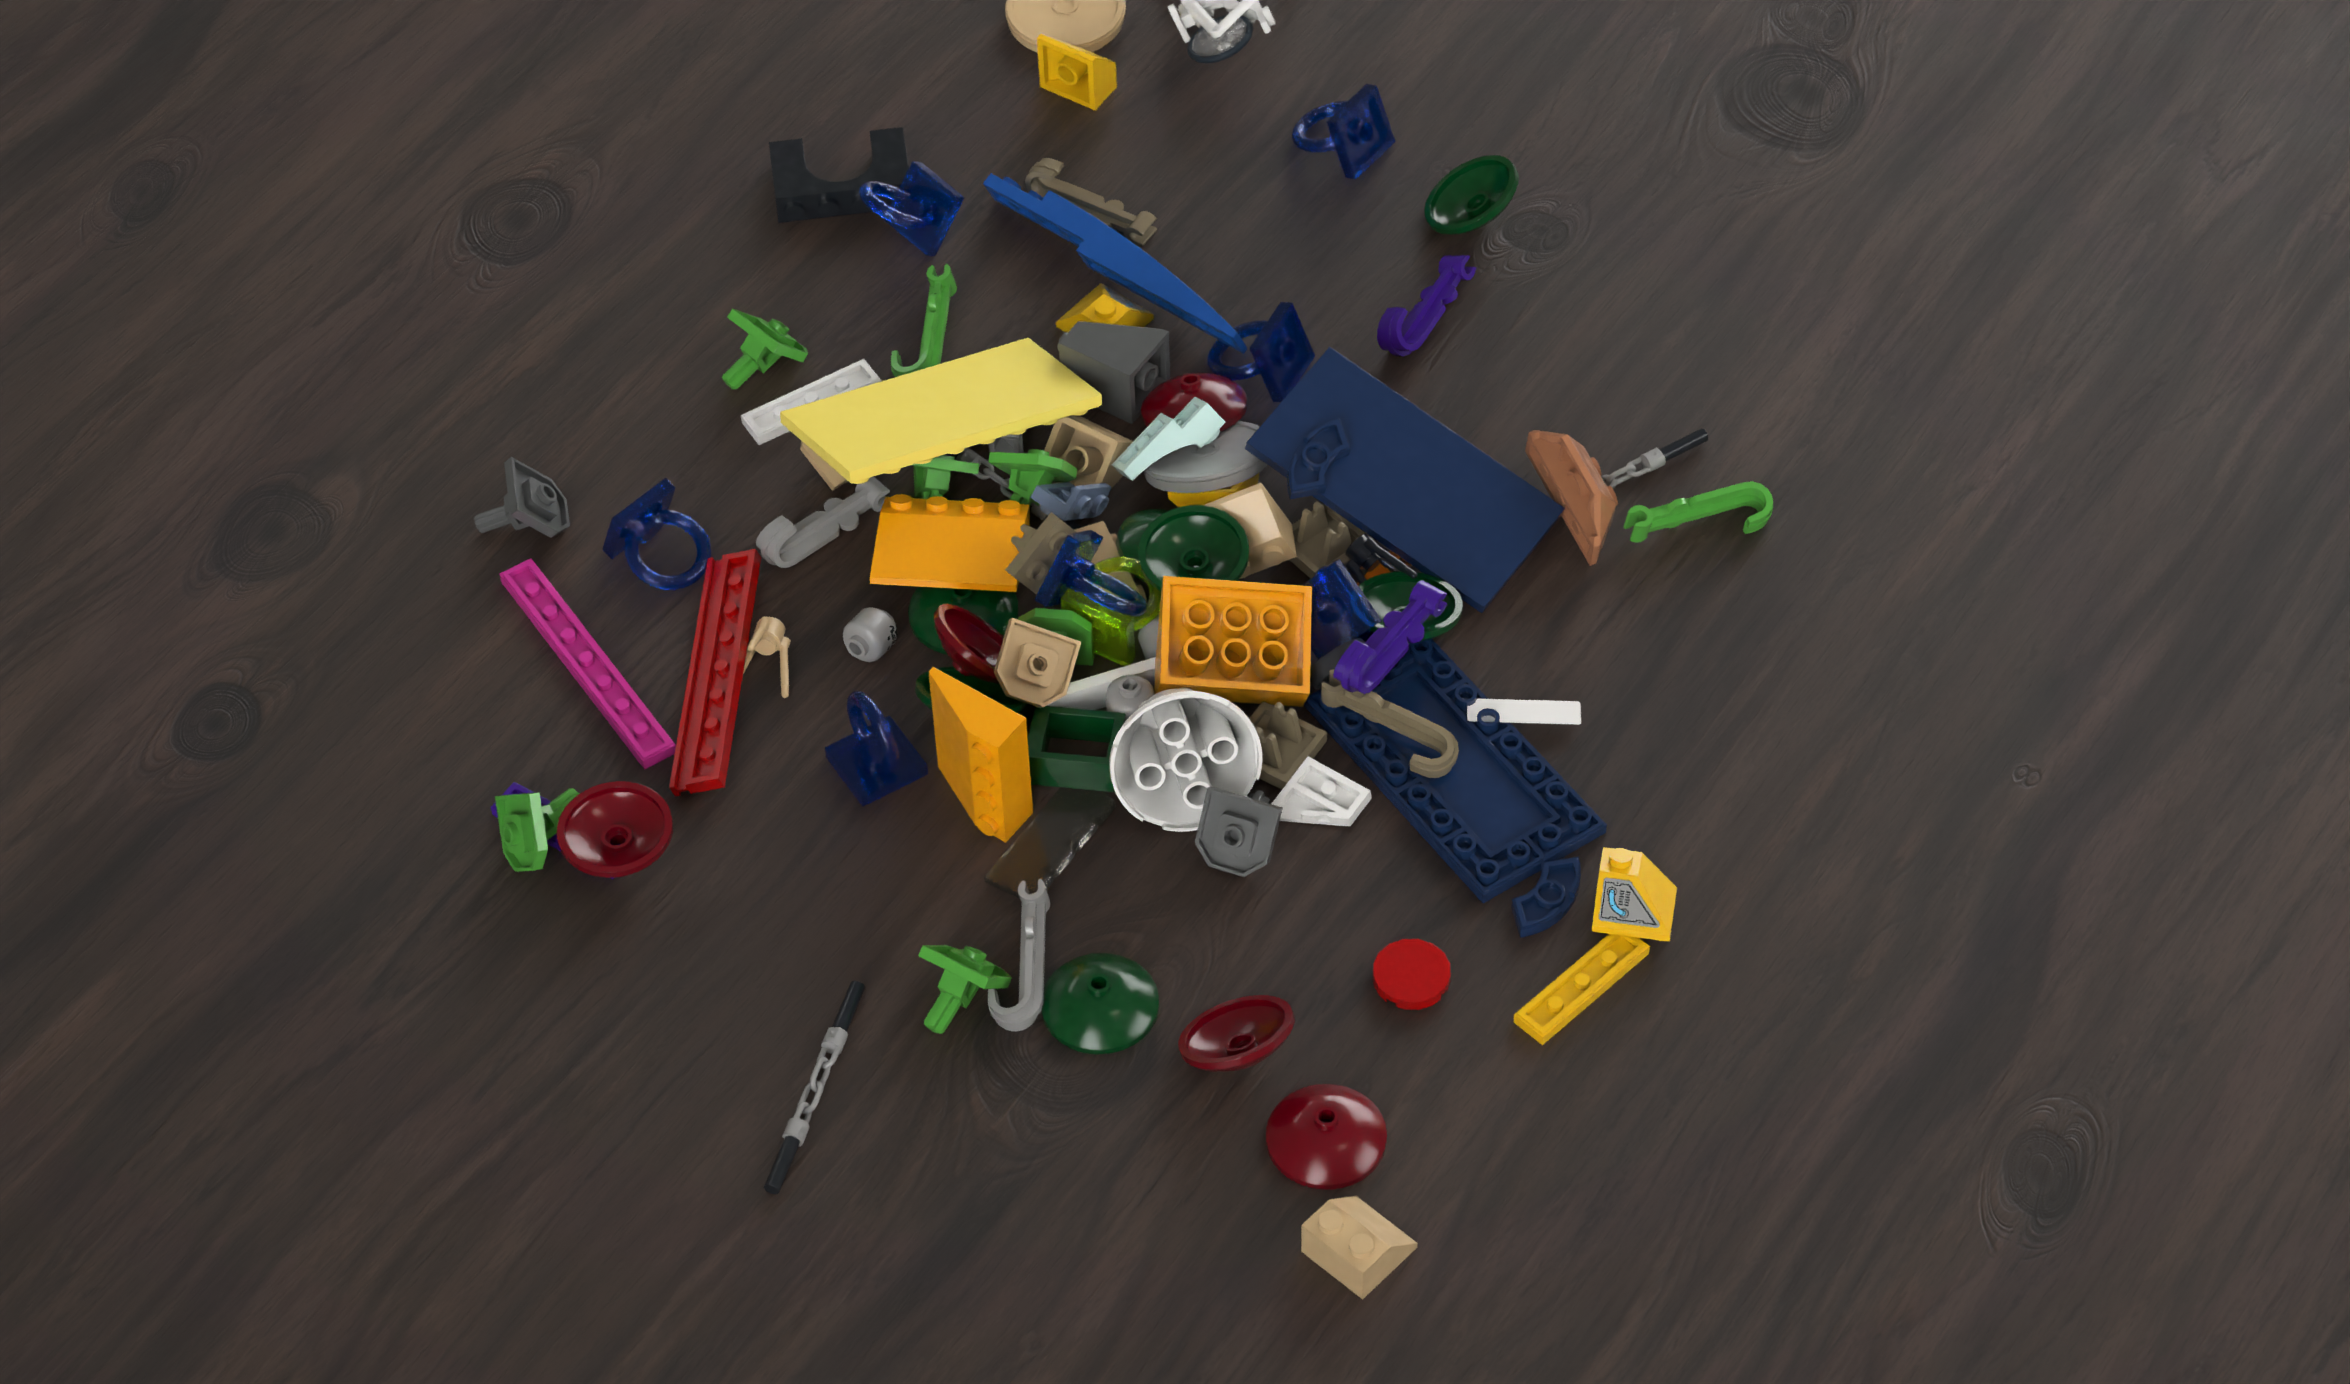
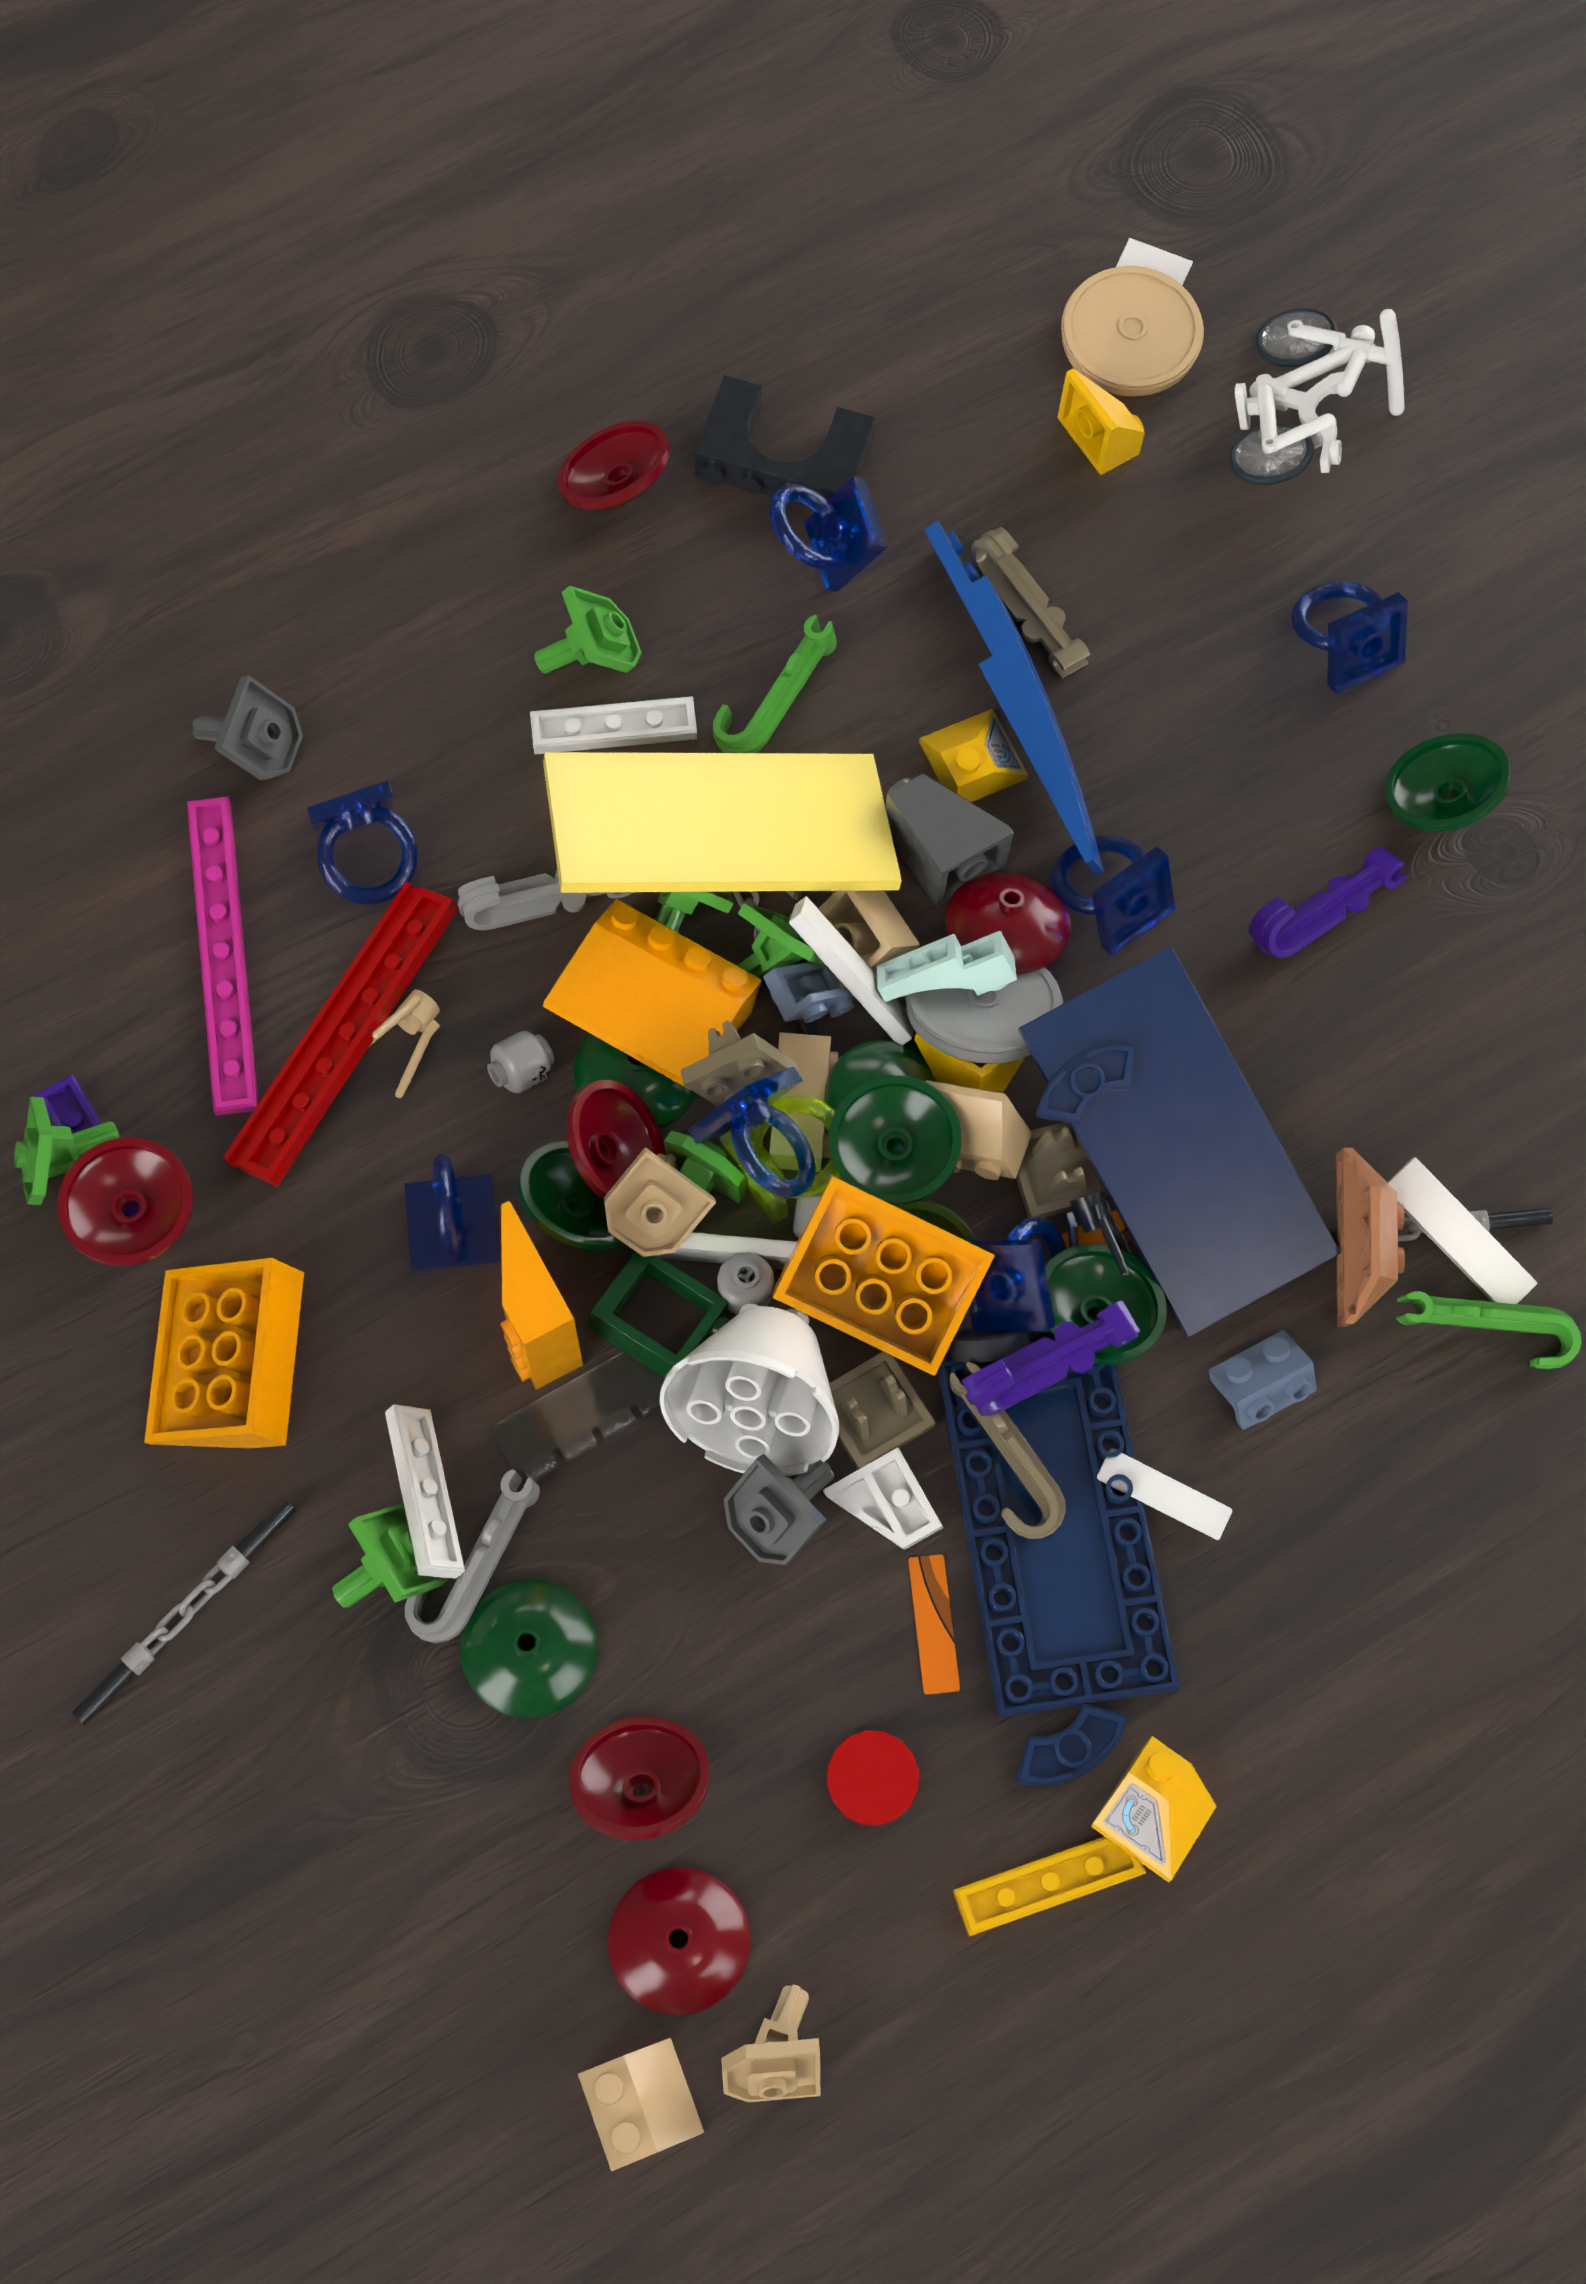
camera: 20 degrees right, 20 degrees up
(716, 231) = (614, 465): none -> dark red dish
(748, 908) = (225, 1355): none -> light orange slope
(962, 923) = (424, 1492): none -> white tile
(1096, 469) = (850, 969): none -> white tile
(1400, 865) = (934, 1624): none -> orange sticker
(1446, 1164) = (777, 2062): none -> tan piece
(1556, 612) = (1265, 1379): none -> sand blue bracket
(1646, 465) = (1460, 1235): none -> white tile

